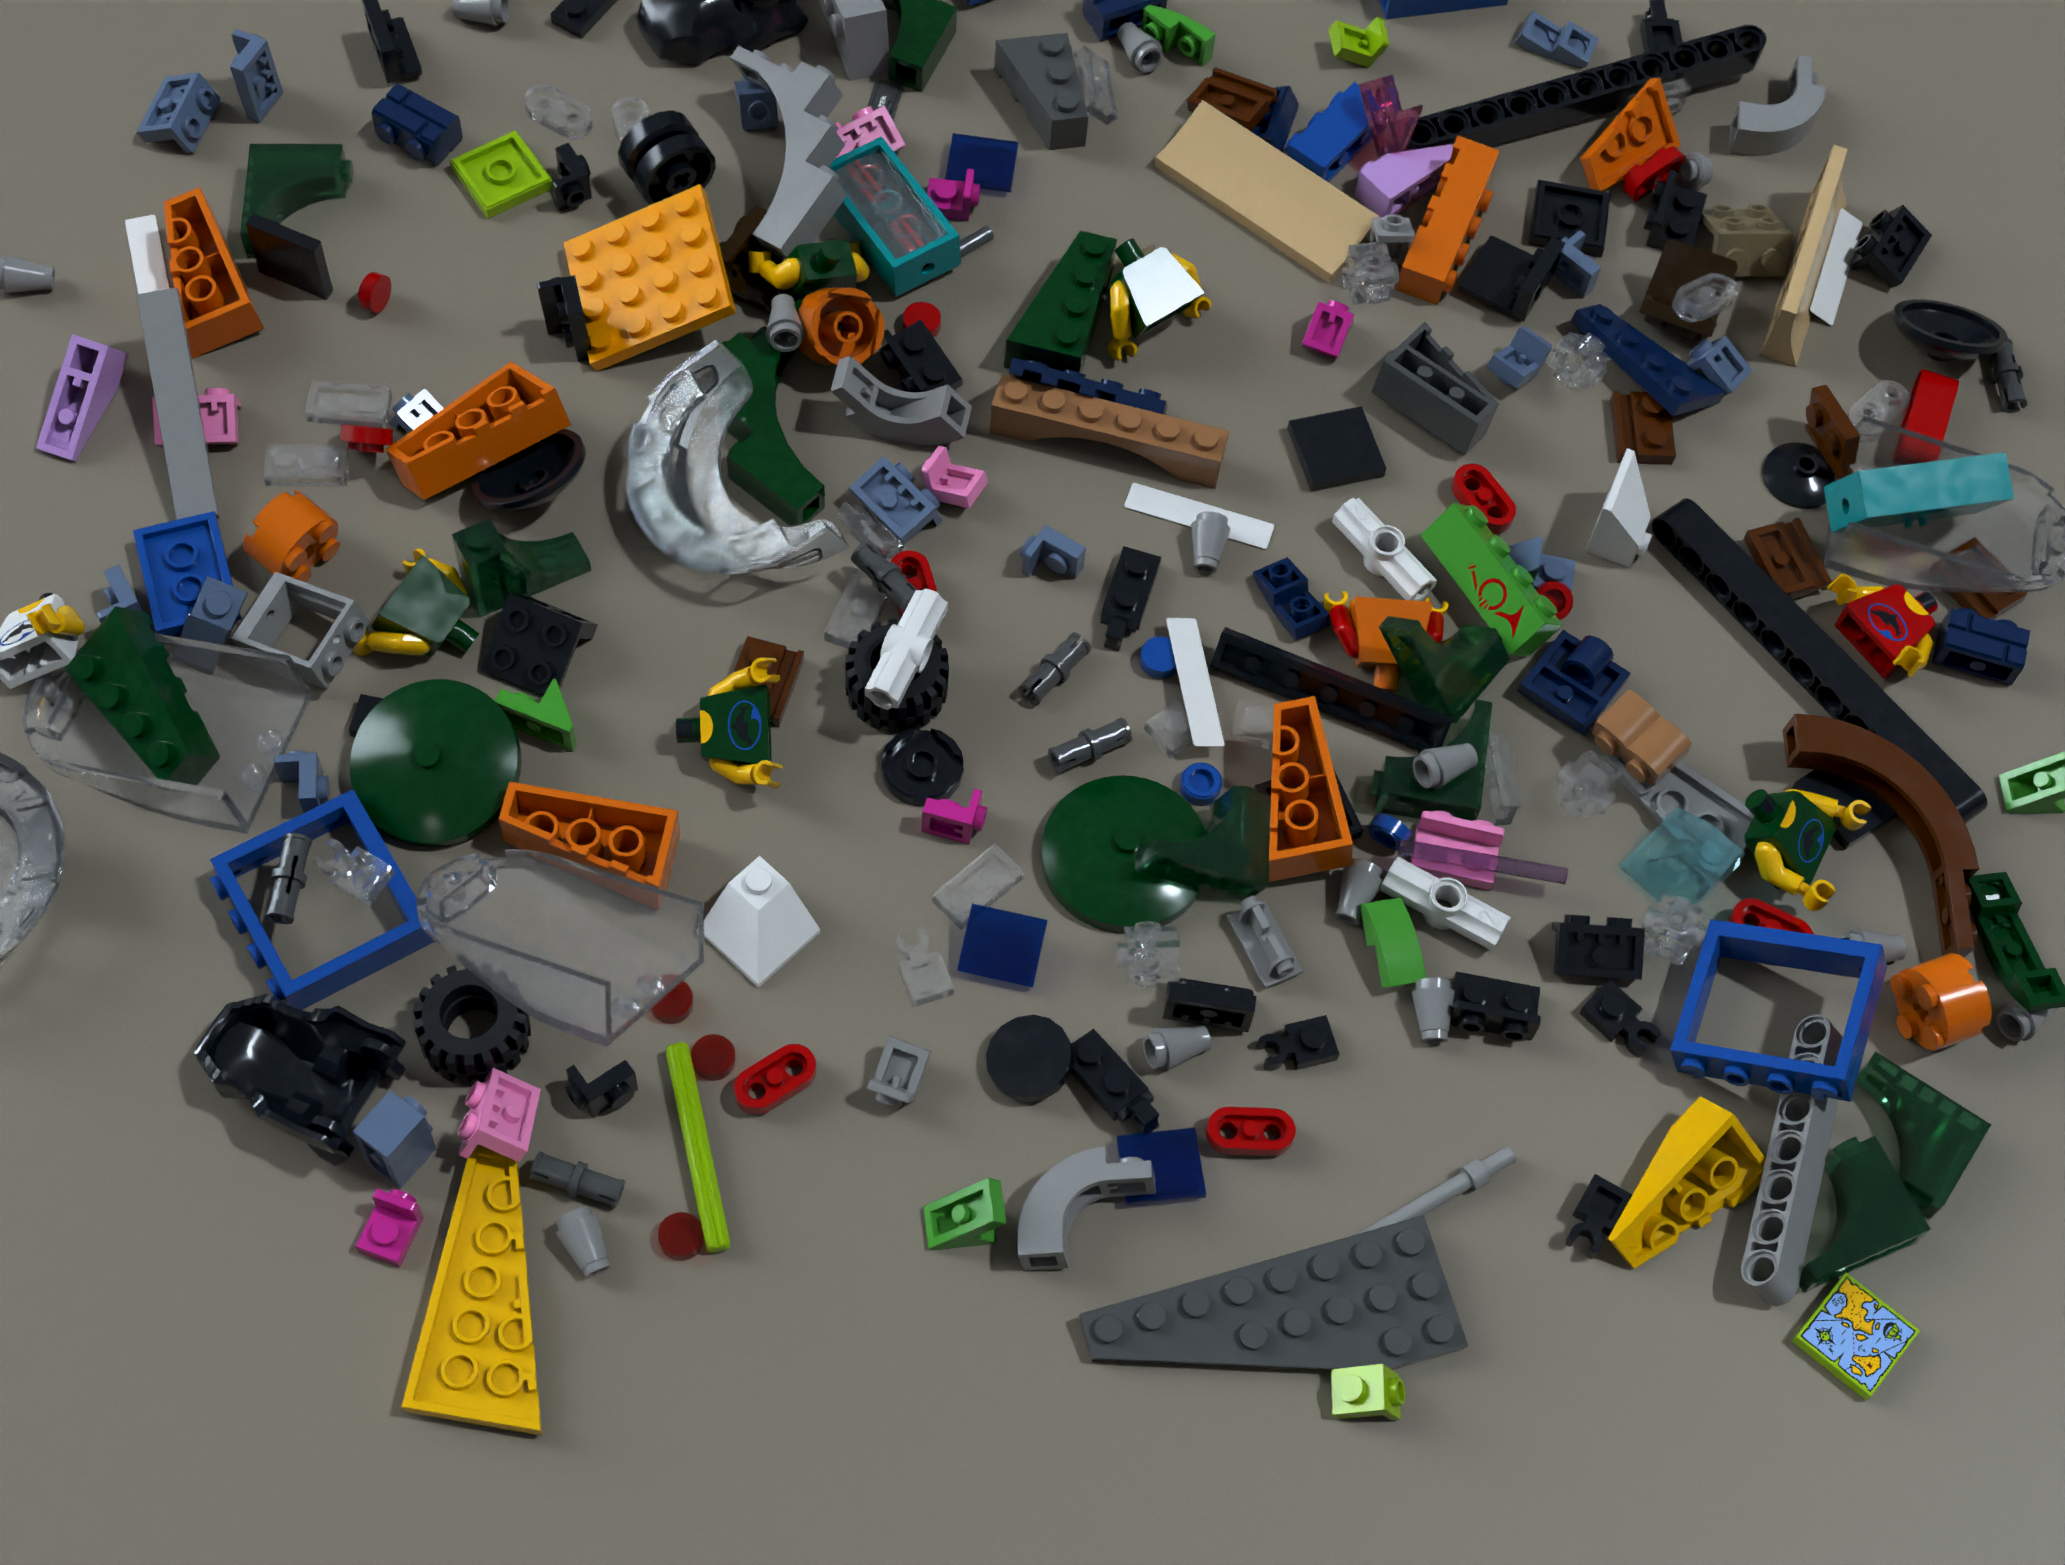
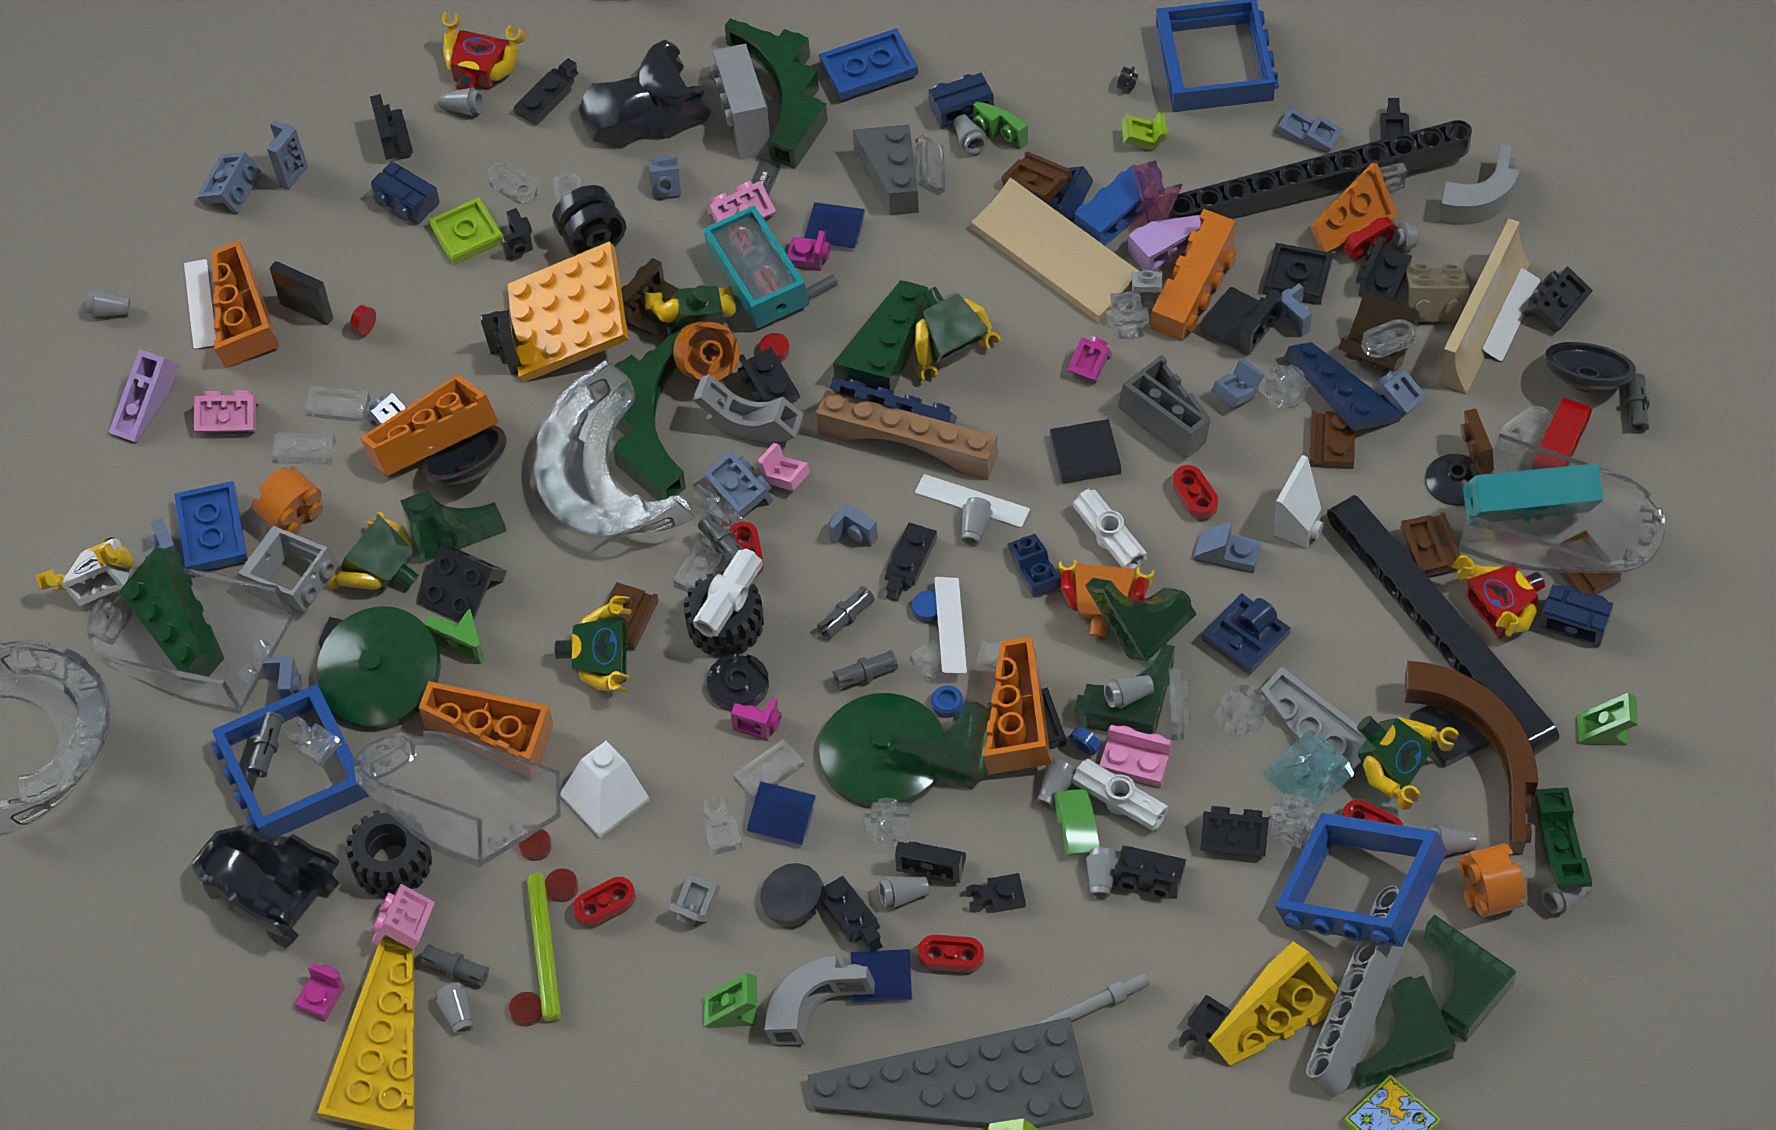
camera: 15 degrees right, 5 degrees down
(177, 403) = (212, 401): light grey tile -> none
(214, 612) = (227, 554): sand blue slope -> none
(290, 178) = (308, 232): clear green arch -> none
(366, 437) = (347, 429): red plate -> none
(395, 1138) = (327, 929): sand blue brick -> none
(609, 1090) = (480, 904): black bracket -> none
(784, 325) = (664, 349): light grey cone -> none
(808, 187) = (692, 243): light grey arch -> none
(1264, 942) = (979, 818): light grey hinge -> none
(1334, 691) = (1053, 634): black tile -> none
(1482, 861) = (1151, 764): clear purple bar -> none
(1492, 579) = (1189, 554): bright green brick -> none
(1559, 595) = (1237, 571): red tile -> none
(1616, 1014) = (1244, 881): black plate -> none
(1641, 738) = (1286, 676): medium nougat brick -> none

